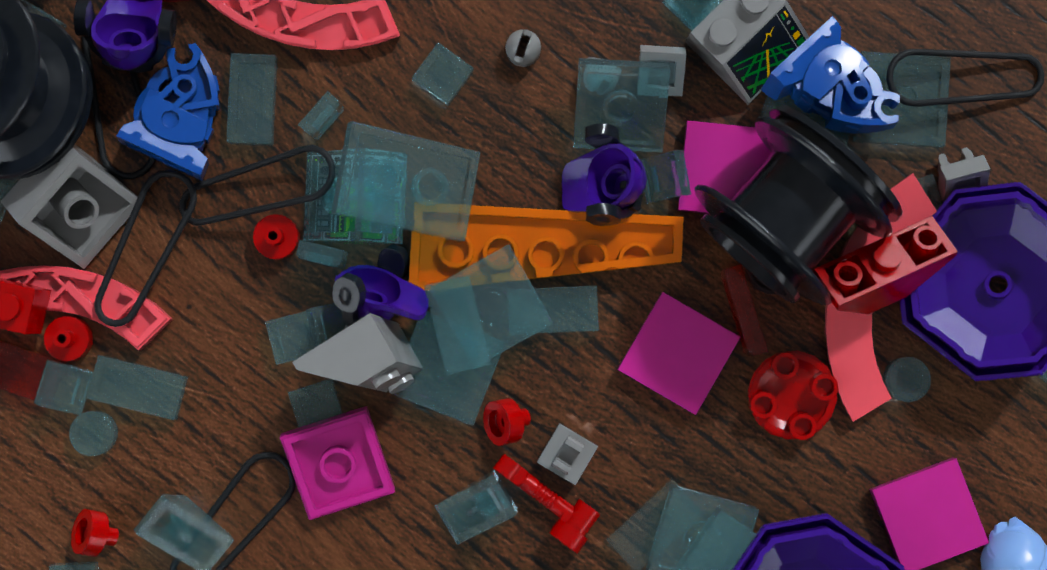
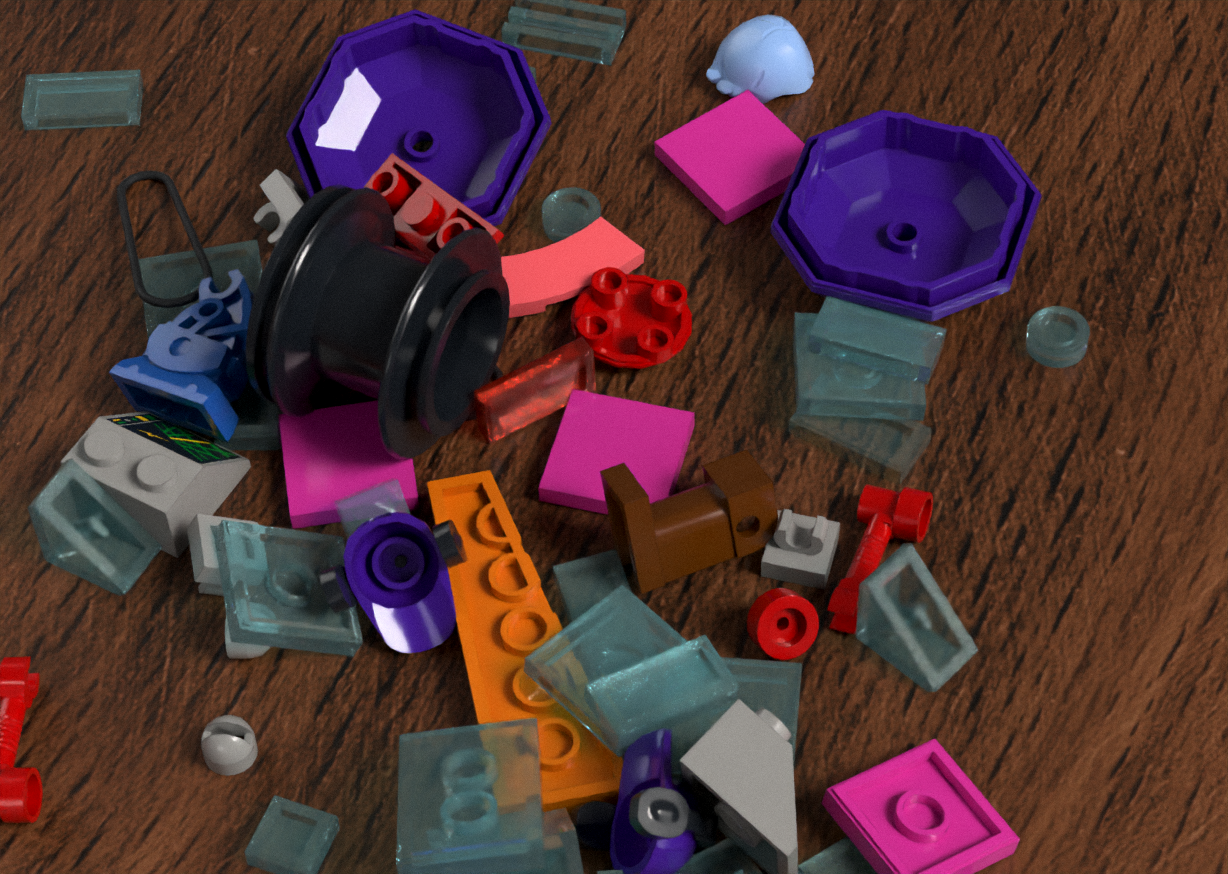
camera: 105 degrees left, 35 degrees down
(593, 386) = (693, 526): none -> reddish brown piece

